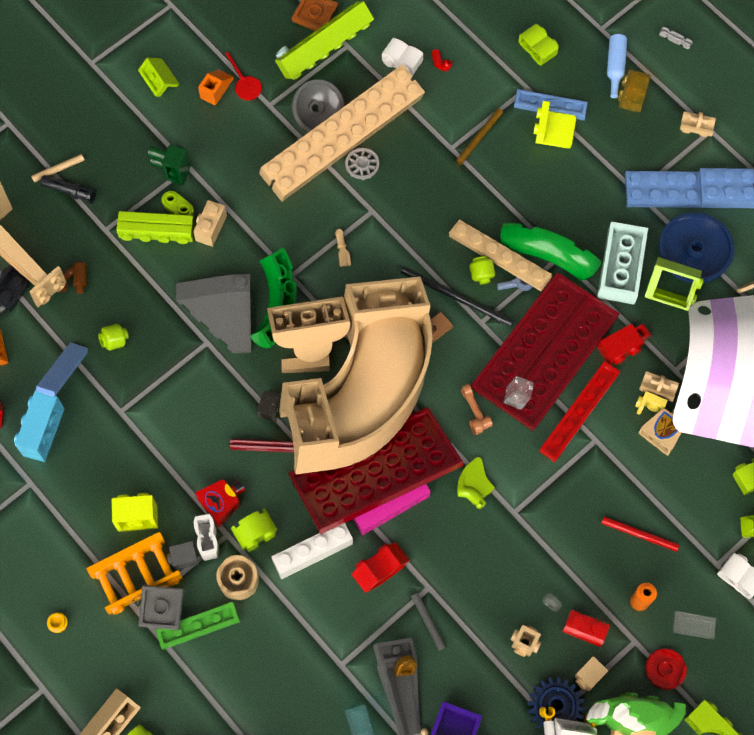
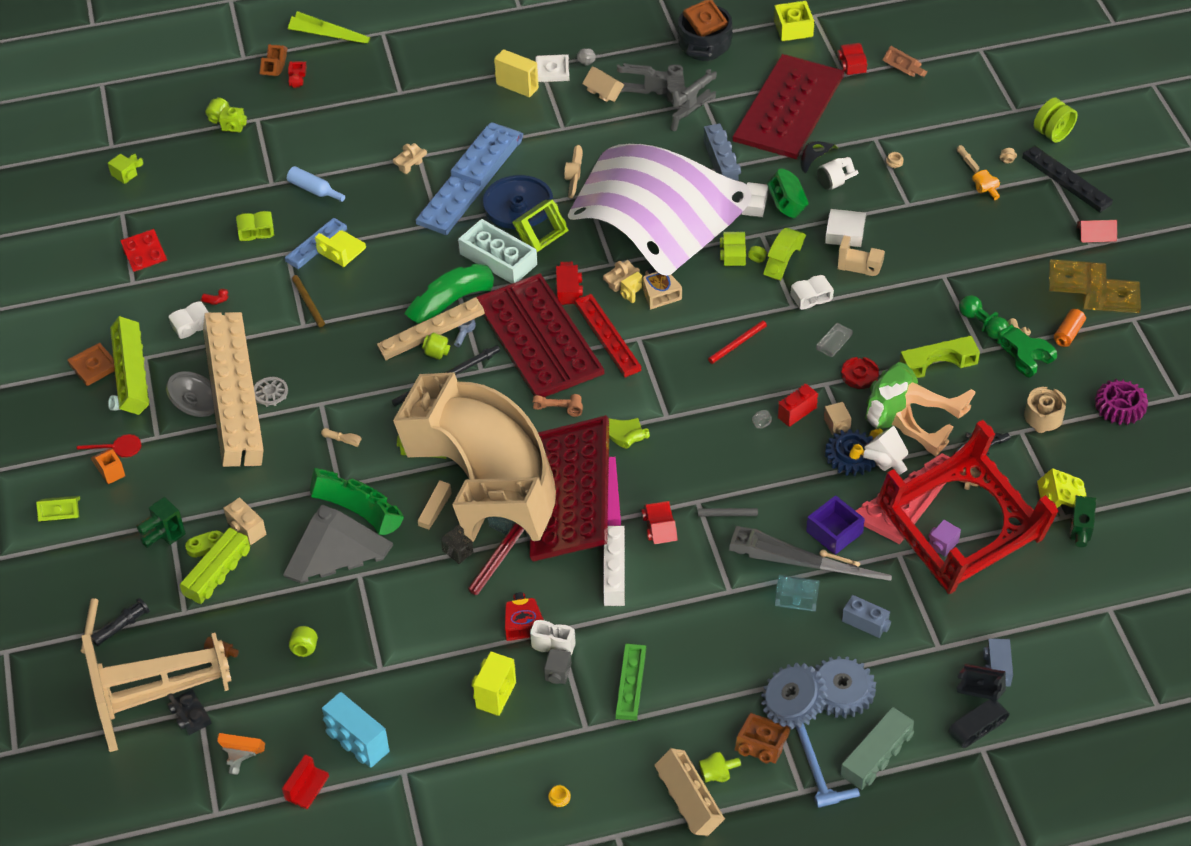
camera: 60 degrees left, 20 degrees down
(62, 369) = (311, 687): medium blue tile -> none
(118, 562) = (532, 721): light orange fence -> none
(161, 607) = (599, 696): dark grey plate -> none
(227, 573) = (606, 629): tan brick -> none
(254, 529) = (570, 597): lime brick -> none
(310, 326) = (409, 471): tan brick -> none
(405, 666) = (760, 535): pearl gold tile -> none
(518, 392) = (568, 359): clear brick -> none
(526, 633) = (785, 446): tan brick -> none
(634, 91) = (348, 183): clear yellow brick -> none
(643, 596) = (794, 354): orange brick -> none
(676, 37) = (319, 140): axle -> none

